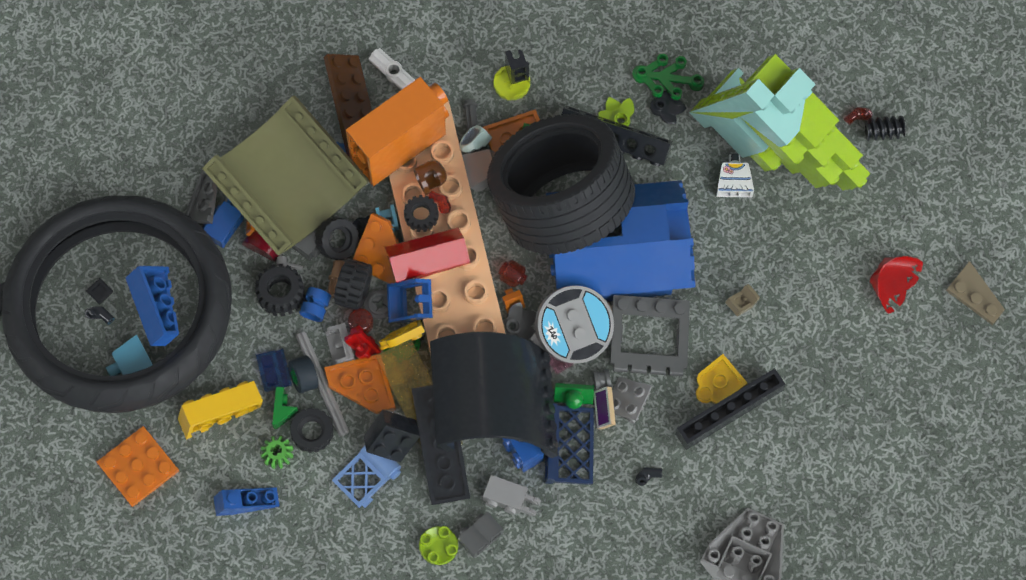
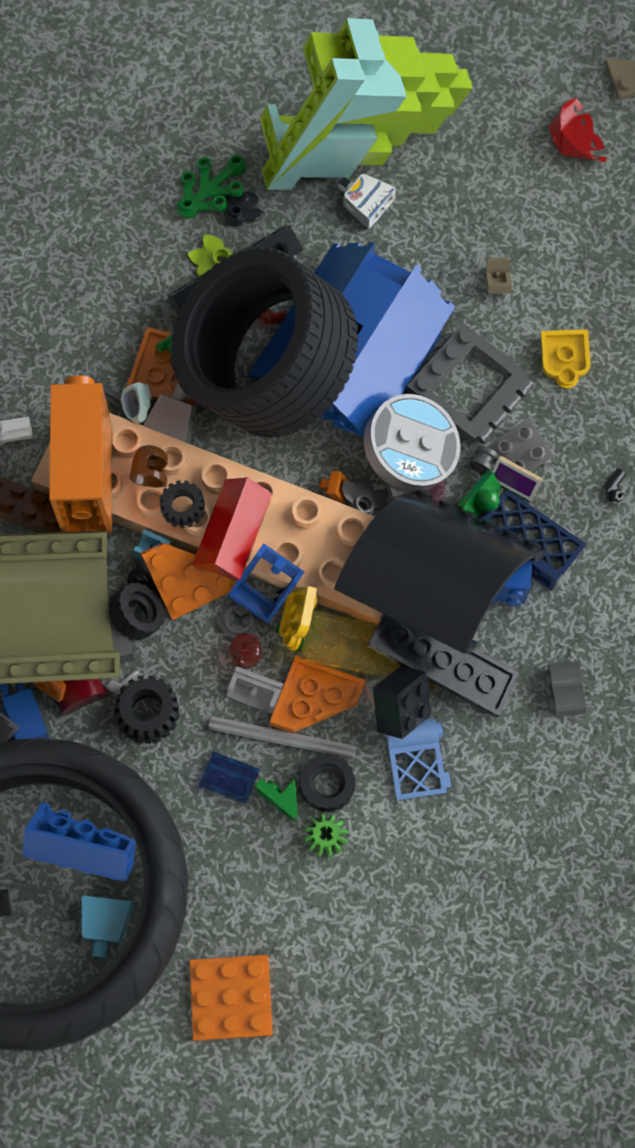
camera: 55 degrees left, 0 degrees up
(99, 312) = (39, 913): black arm -> none
(218, 407) = (232, 863): yellow wedge -> none
(245, 500) = (356, 906): blue slope -> none
(303, 374) = (260, 748): black wheel -> none
(315, 303) = (192, 686): blue wheel -> none
(337, 265) = (176, 644): medium nougat axle -> none
(353, 284) = (202, 628): black tyre -> none
(361, 343) = (272, 664): red hips -> none
(438, 545) = (546, 739): lime dish -> none
(442, 201) = (184, 473): clear red arm -> none
(506, 90) = (98, 331): neon yellow tile -> none
(508, 496) = (543, 633): light grey hinge -> none
(512, 273) = (306, 467): clear red head -> none
(516, 68) = (91, 312): black hinge -> none
(730, 409) = (604, 363): black brick -> none
(885, 127) = (423, 29): black piece -> none

